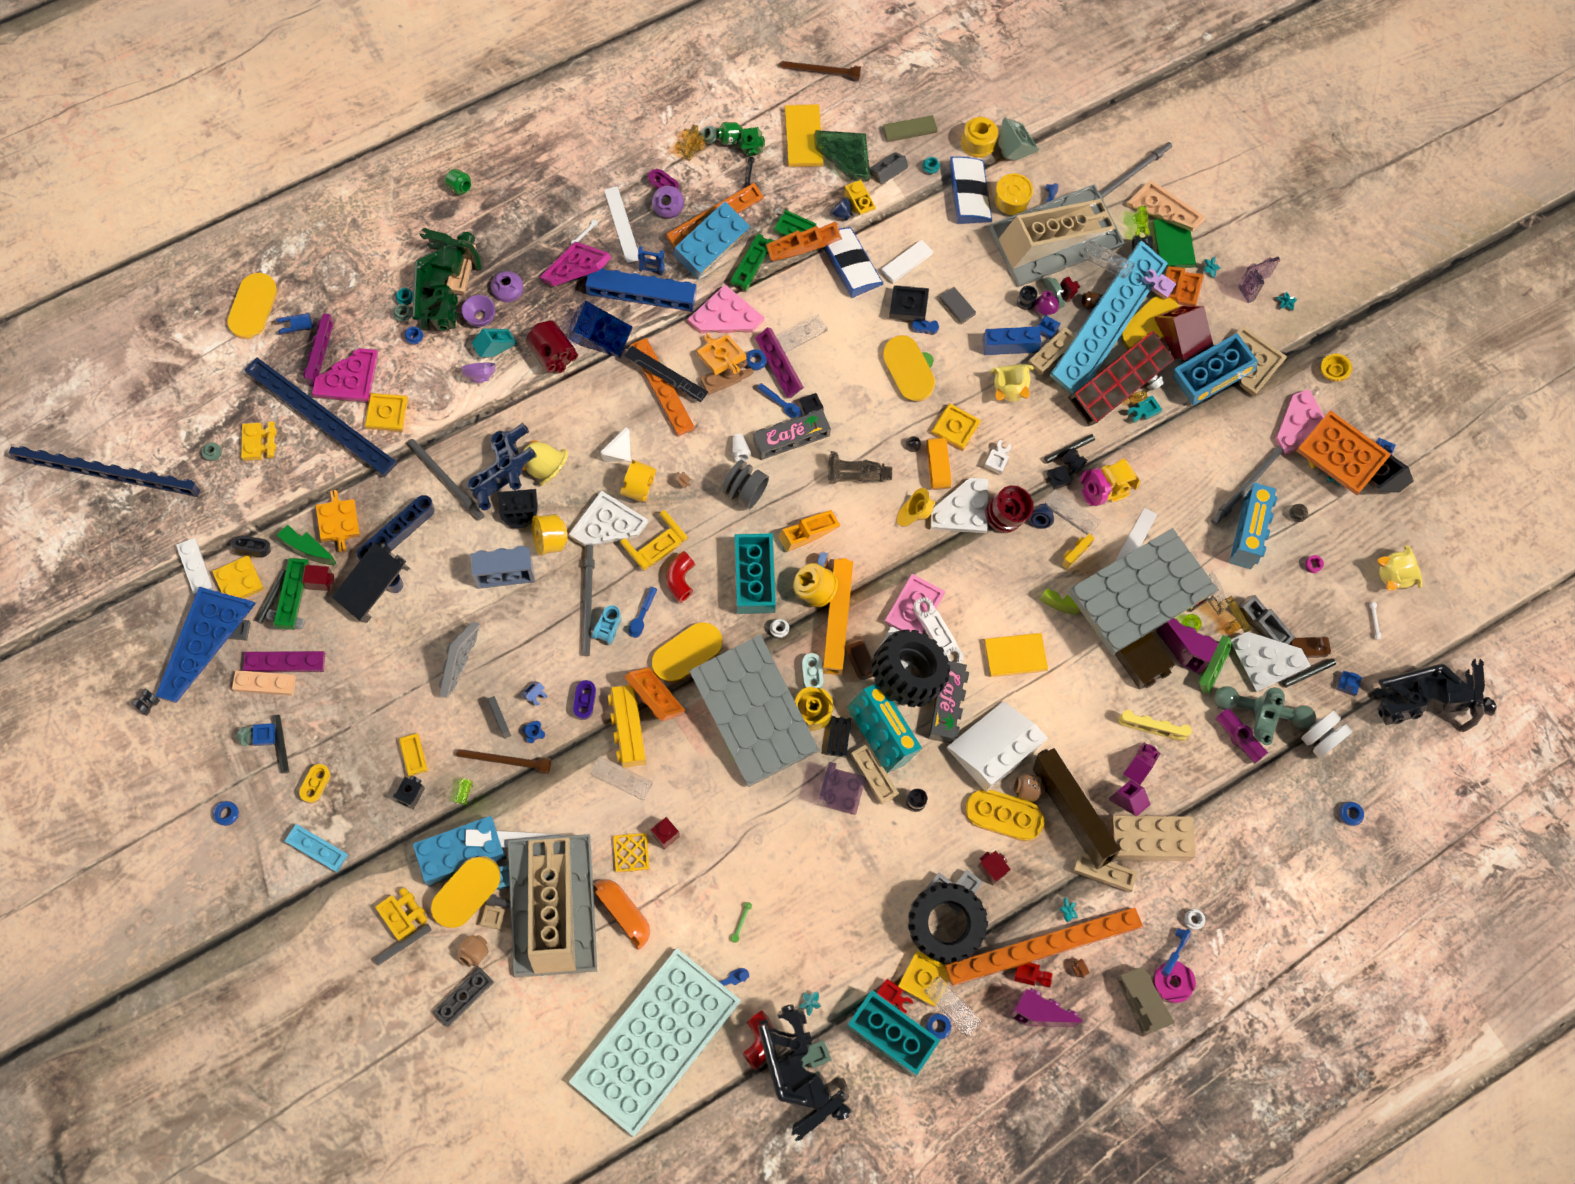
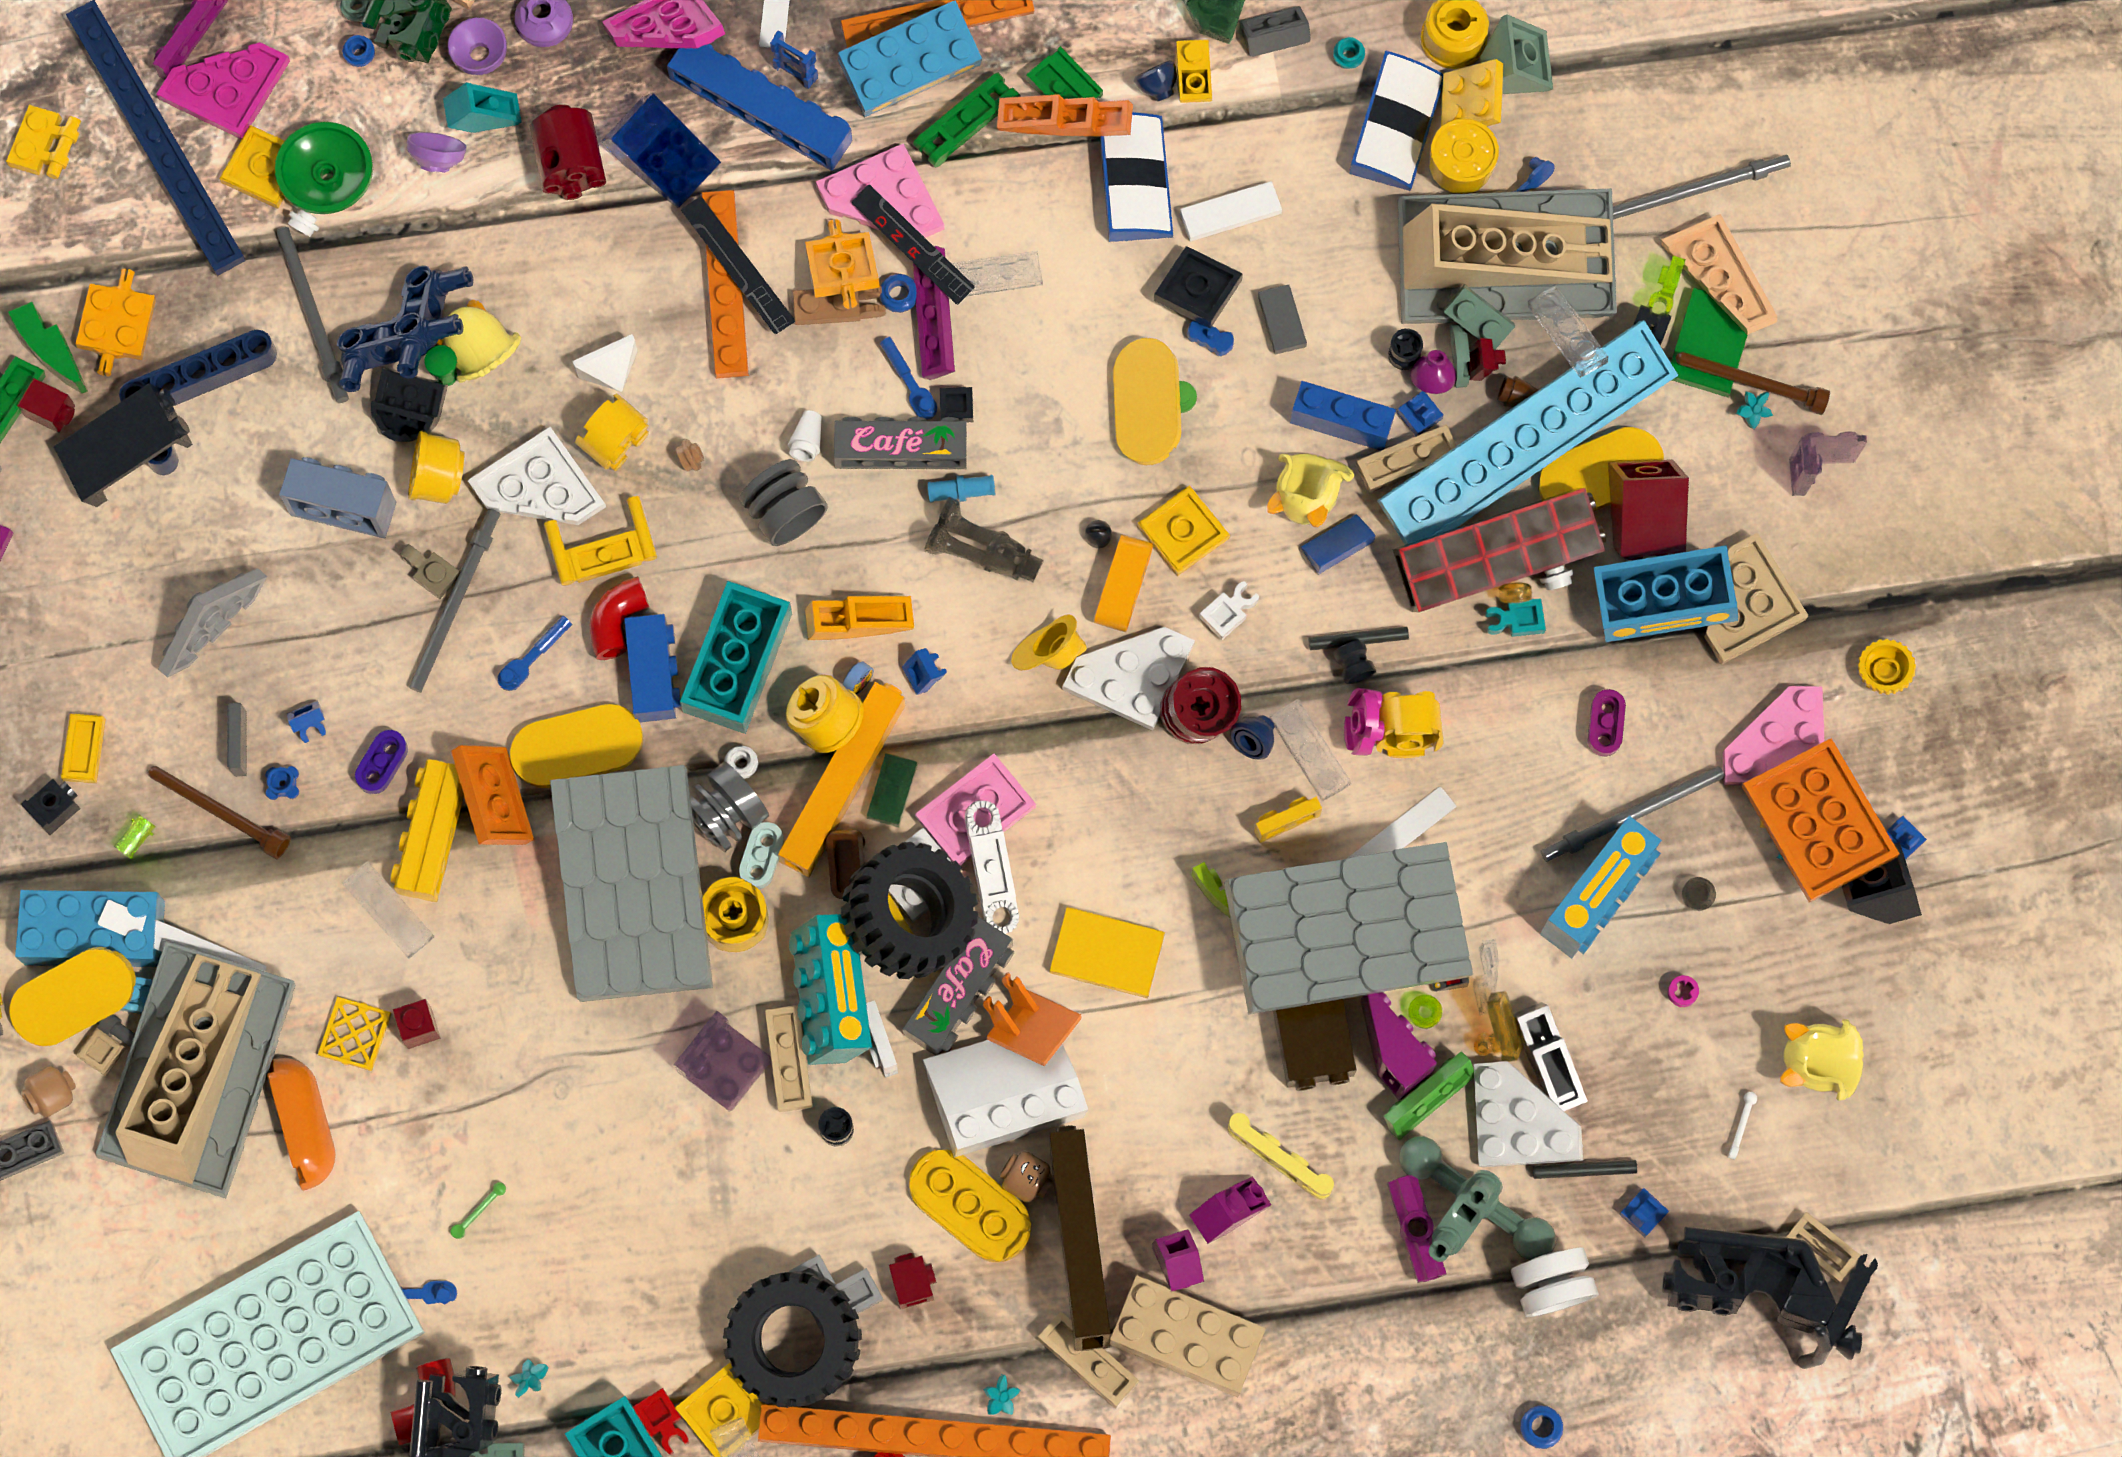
camera: 25 degrees right, 5 degrees up
(421, 390) = (319, 151): none -> green dish
(421, 432) = (303, 222): none -> white plate
(530, 477) = (441, 363): none -> green pin
(569, 590) = (432, 573): none -> dark tan plate
(607, 628) = (466, 656): medium azure piece -> none
(711, 596) = (652, 668): none -> blue brick
(754, 331) = (913, 244): none -> black sticker
(786, 651) = (725, 806): none -> dark grey wheel
(833, 445) = (961, 488): none -> dark azure pin
(841, 720) = (773, 951): black tile -> none
(855, 545) = (922, 670): none -> blue tile
(865, 613) = (892, 790): none -> clear green plate
(927, 752) = (881, 1052): none -> white plate
(995, 705) = (1032, 1025): none -> orange plate
(1003, 162) = (1473, 93): none -> yellow plate
(1037, 405) = (1338, 543): none -> blue slope
(1056, 268) = (1478, 316): none -> sand green plate
(1059, 477) = (1317, 681): black plate -> none
(1161, 284) = (1646, 411): lavender plate -> none
(1187, 285) = (1687, 425): orange slope -> none
(1213, 446) = (1606, 724): none -> magenta plate
(1238, 252) = (1814, 399): none -> reddish brown piece
(1287, 301) = (1861, 517): teal plant -> none
(1313, 646) = (1609, 1128): reddish brown piece -> none
(1431, 655) = (1832, 1239): none -> tan tile

